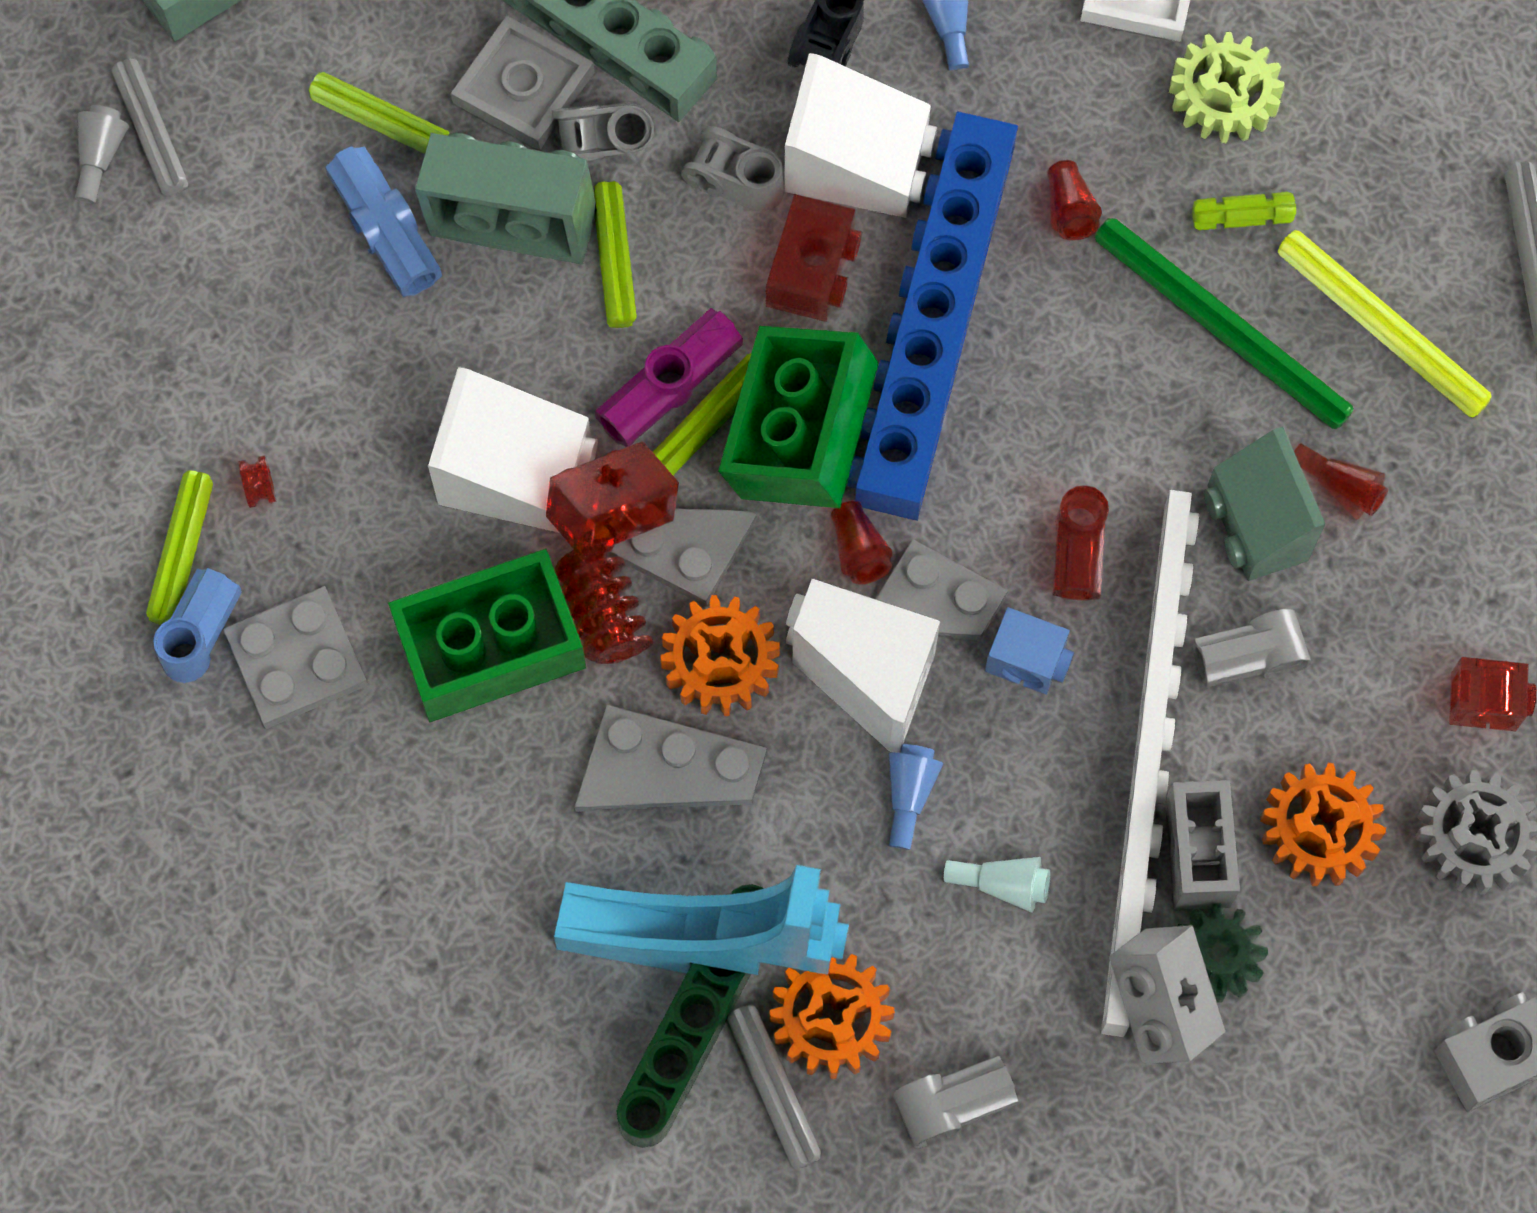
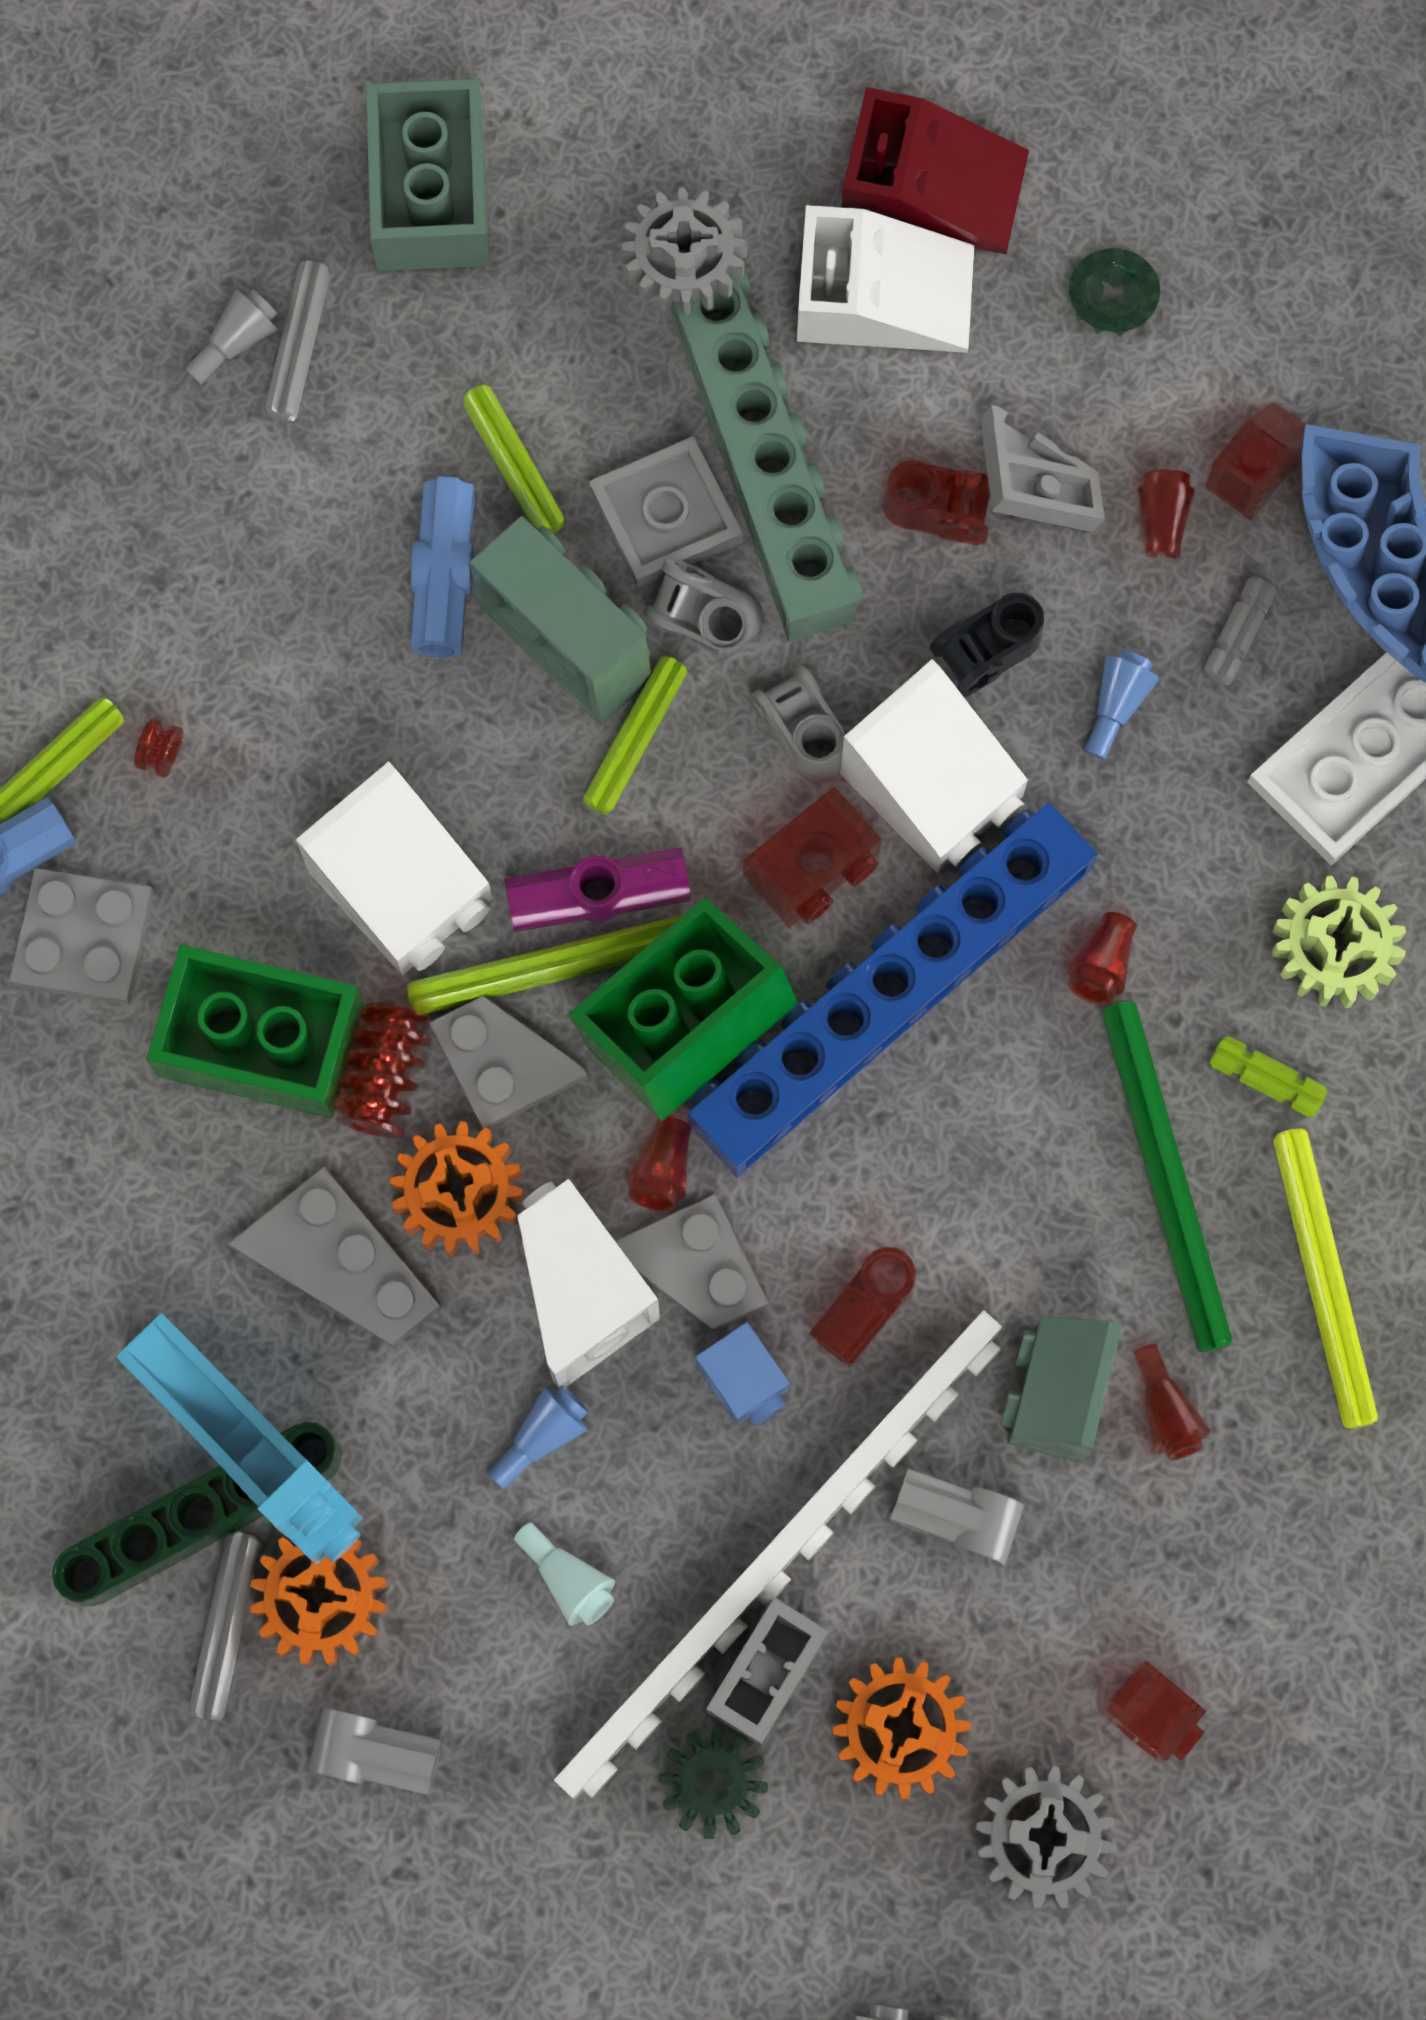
camera: 35 degrees right, 5 degrees up
(611, 499) = (448, 977): clear red brick -> none
(1167, 994) = (626, 1793): light grey brick -> none

